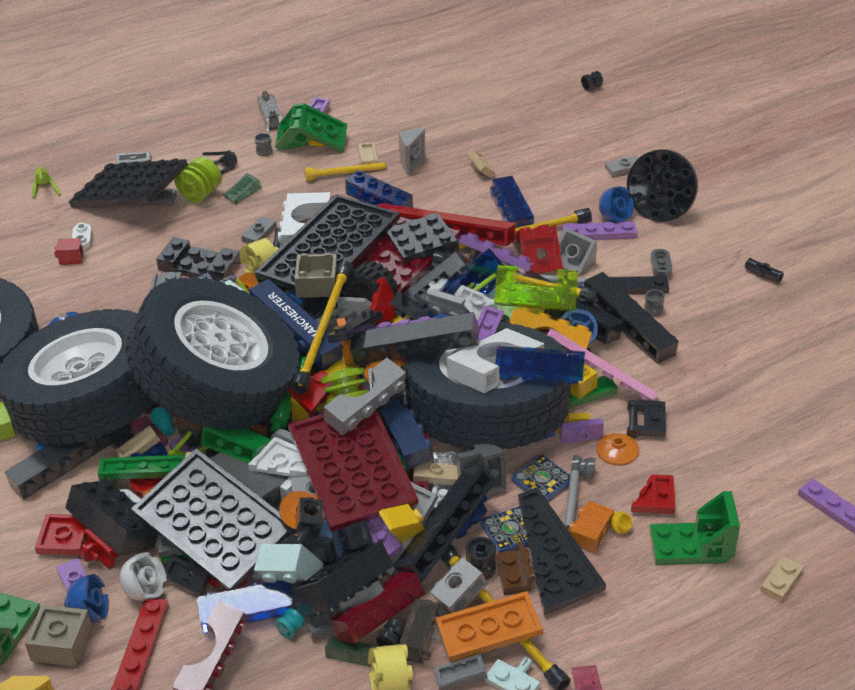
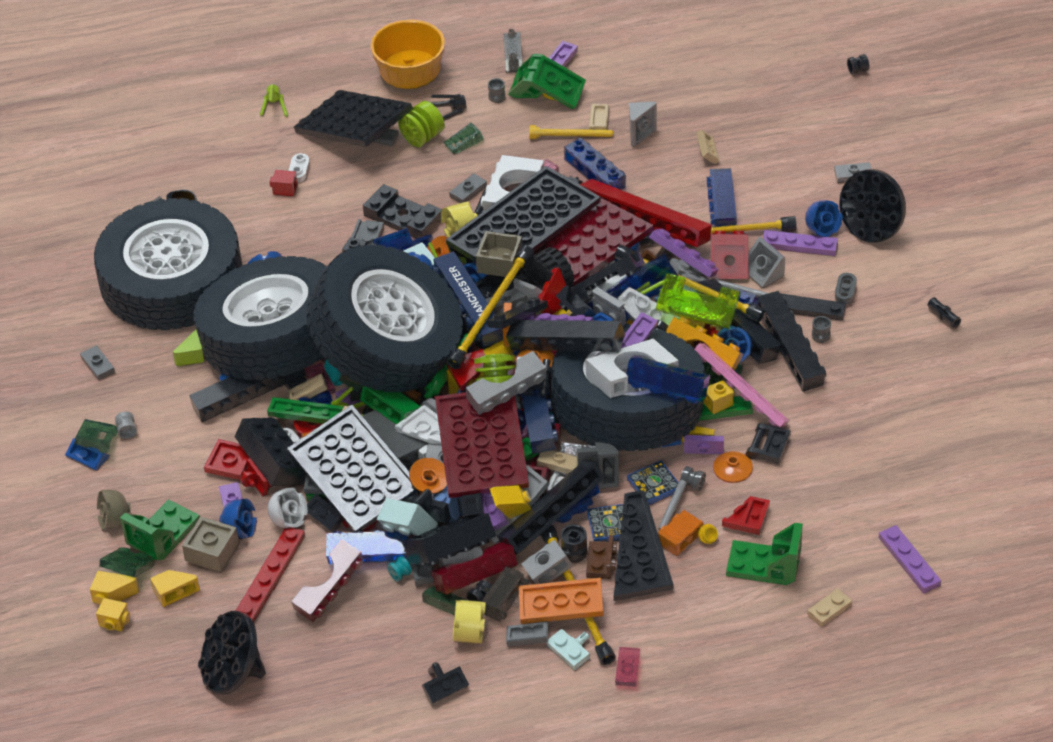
camera: 15 degrees right, 5 degrees up
(132, 157) = (368, 87): light grey tile -> none
(171, 122) = (408, 53): none -> light orange piece
(313, 507) = (436, 473): black brick -> none
(421, 237) = (612, 227): plate -> none

